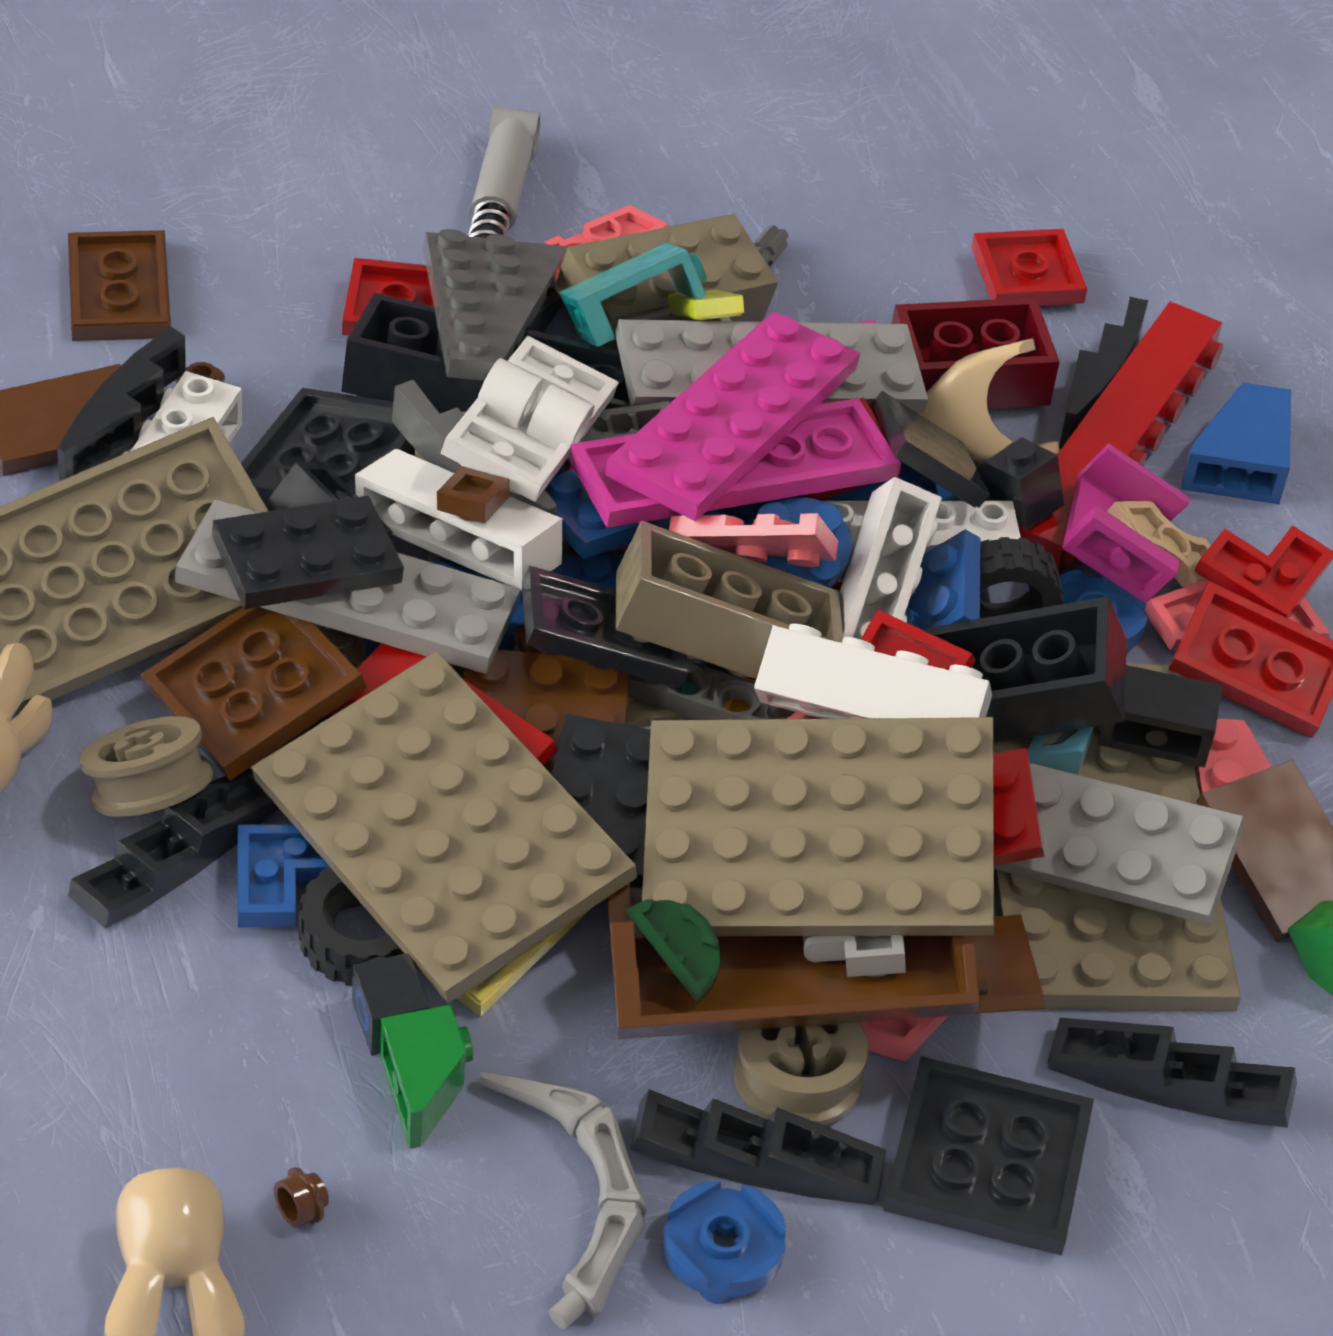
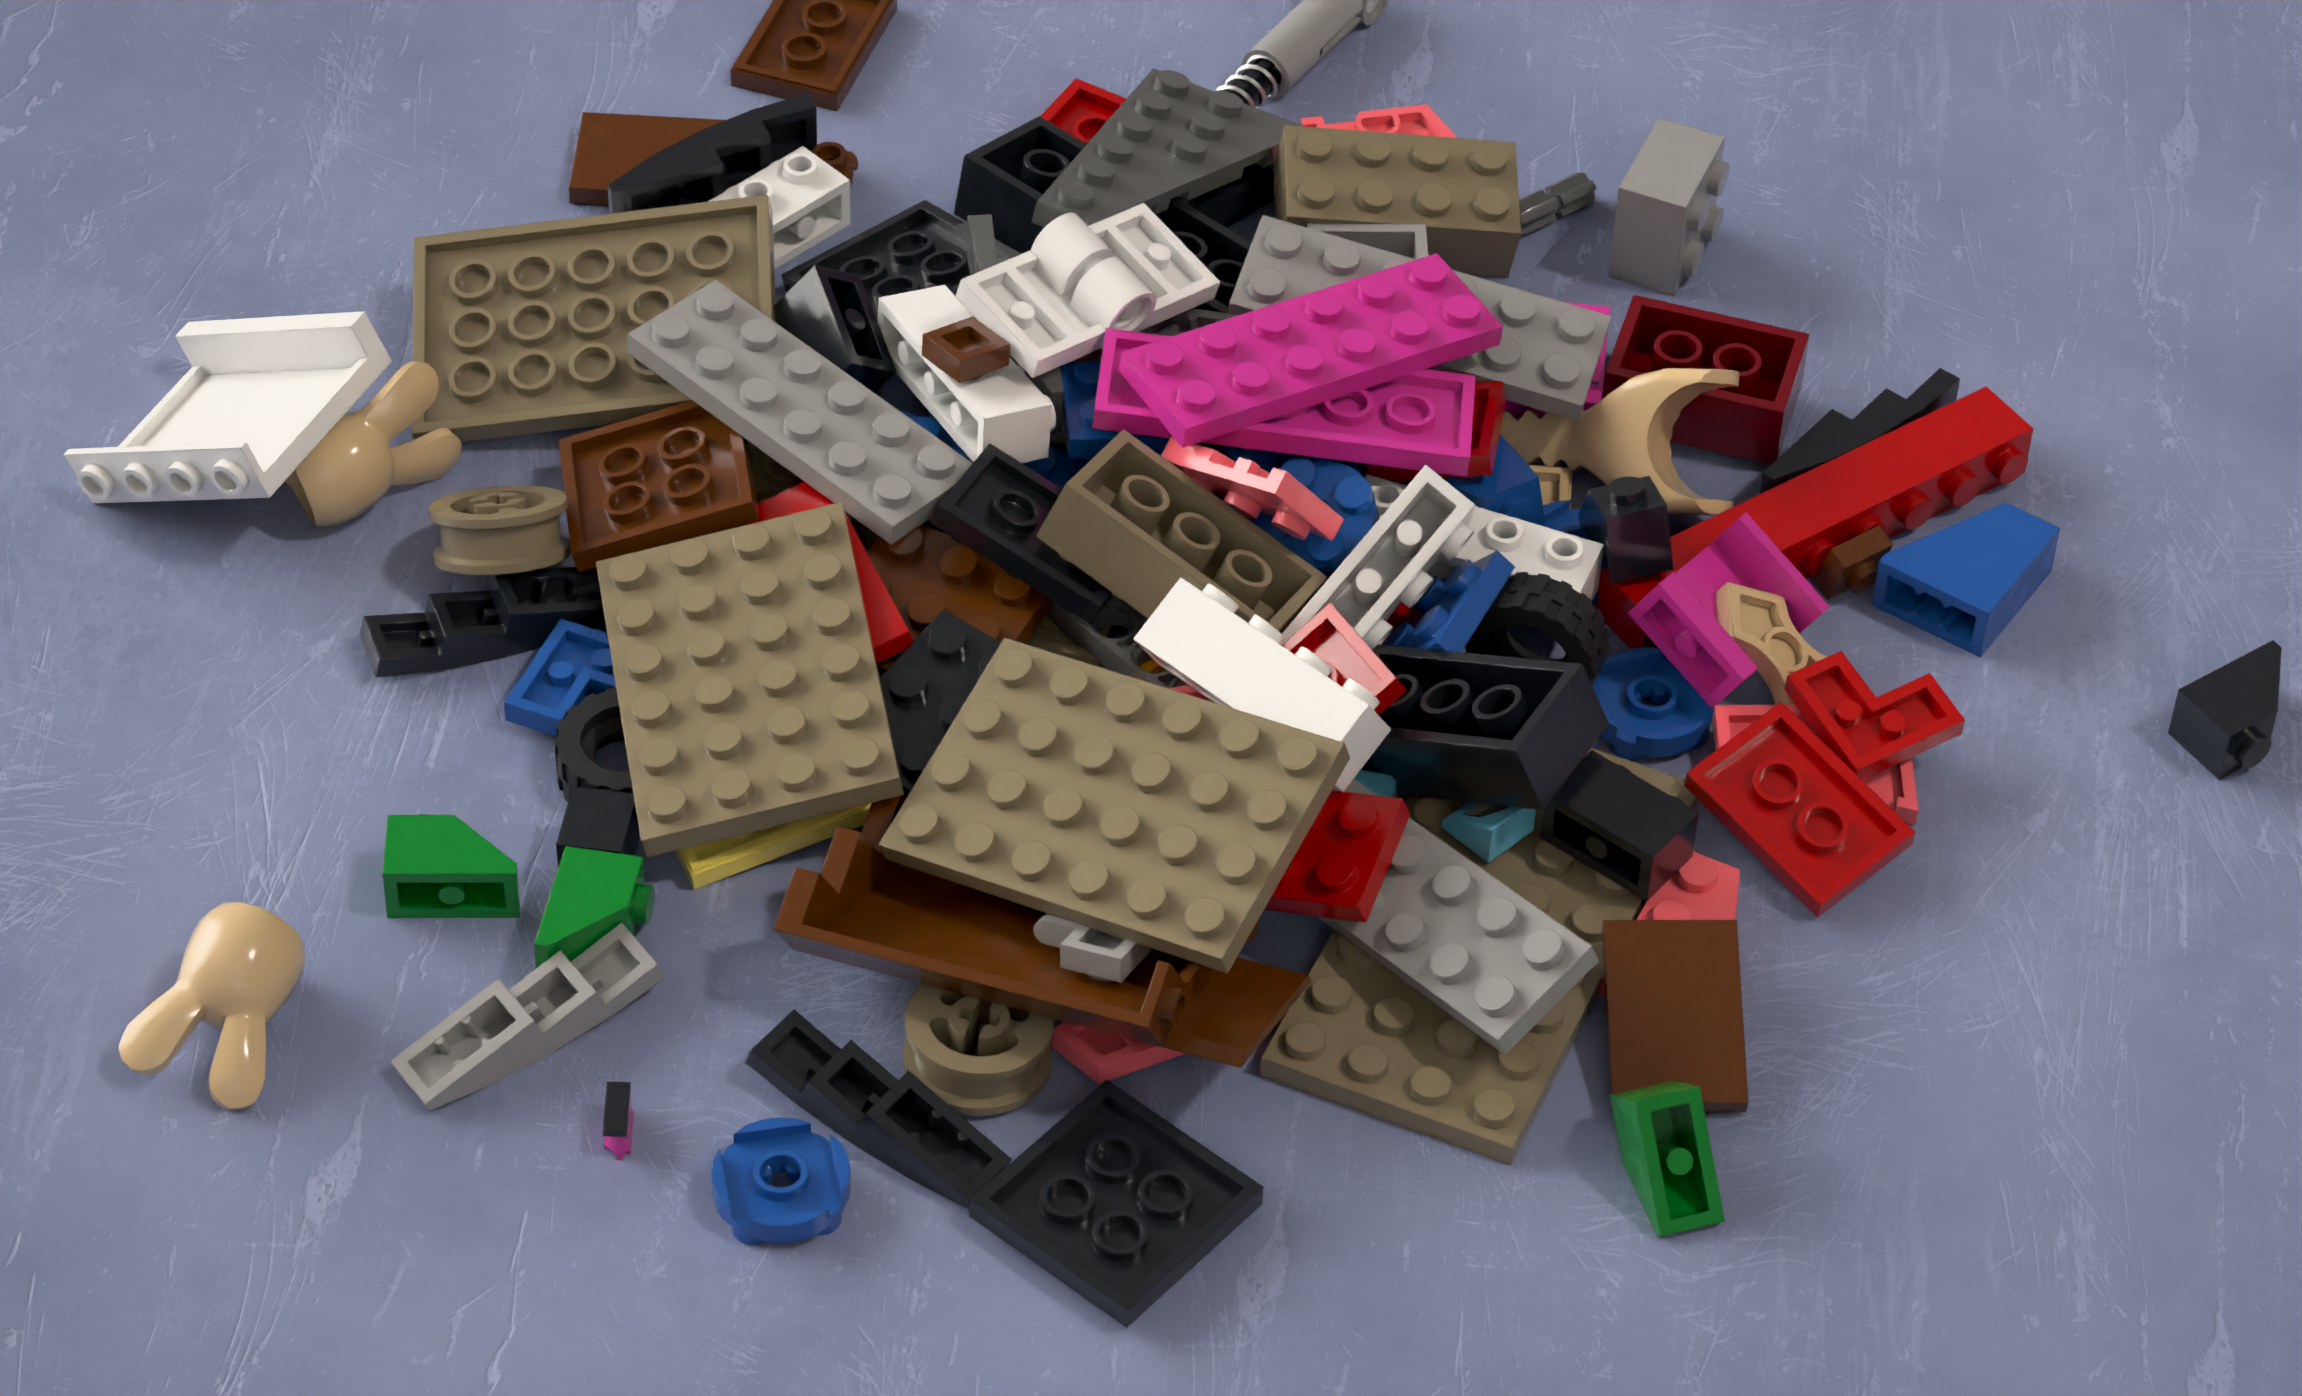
camera: 30 degrees right, 0 degrees up
(281, 1074) = (445, 871): none -> green slope
(301, 1197) = (393, 990): reddish brown plate -> none
(307, 552) = (763, 358): black plate -> none
(428, 1180) = (516, 1027): none -> light grey slope
(558, 1237) = (618, 1118): none -> black piece
(585, 297) = (1251, 194): teal panel -> none
(620, 1196) = (700, 1107): light grey animal -> none
(682, 941) = (903, 873): dark green tile -> none
(714, 305) = (1387, 229): neon yellow tile -> none
(864, 232) = (1668, 207): none -> light grey brick
(930, 450) = (1534, 458): black tile -> none
(1029, 266) = (1860, 305): red plate -> none
(1166, 460) = (1853, 564): none -> reddish brown plate
(1187, 1077) = (1370, 1191): black slope -> none

